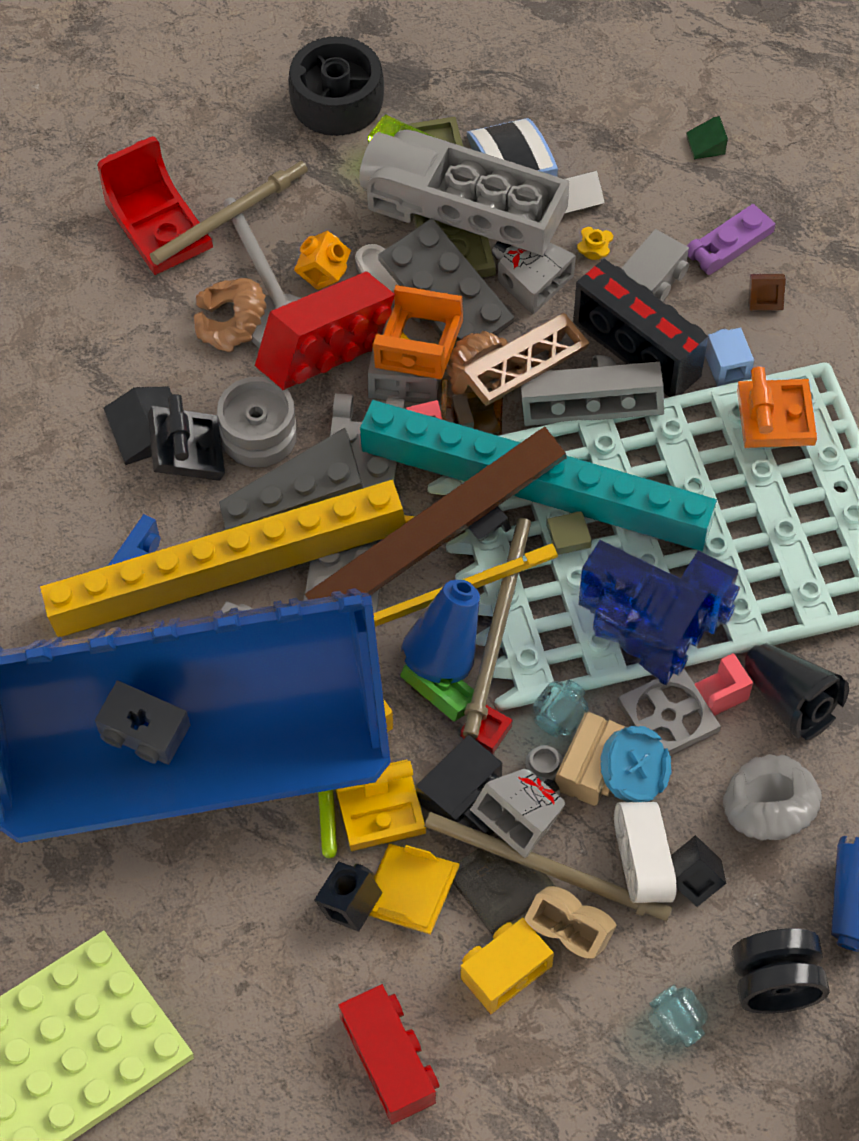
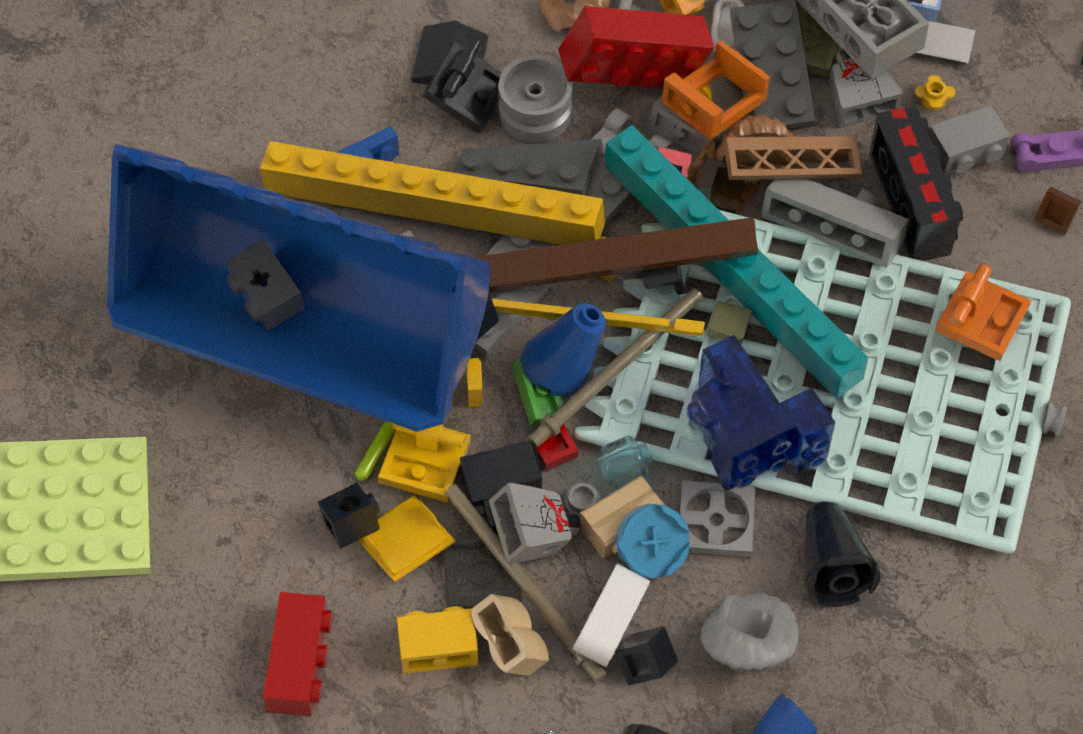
camera: 30 degrees right, 0 degrees up
(727, 686) = (778, 524): coral panel -> none
(729, 356) = (983, 246): light blue brick -> none

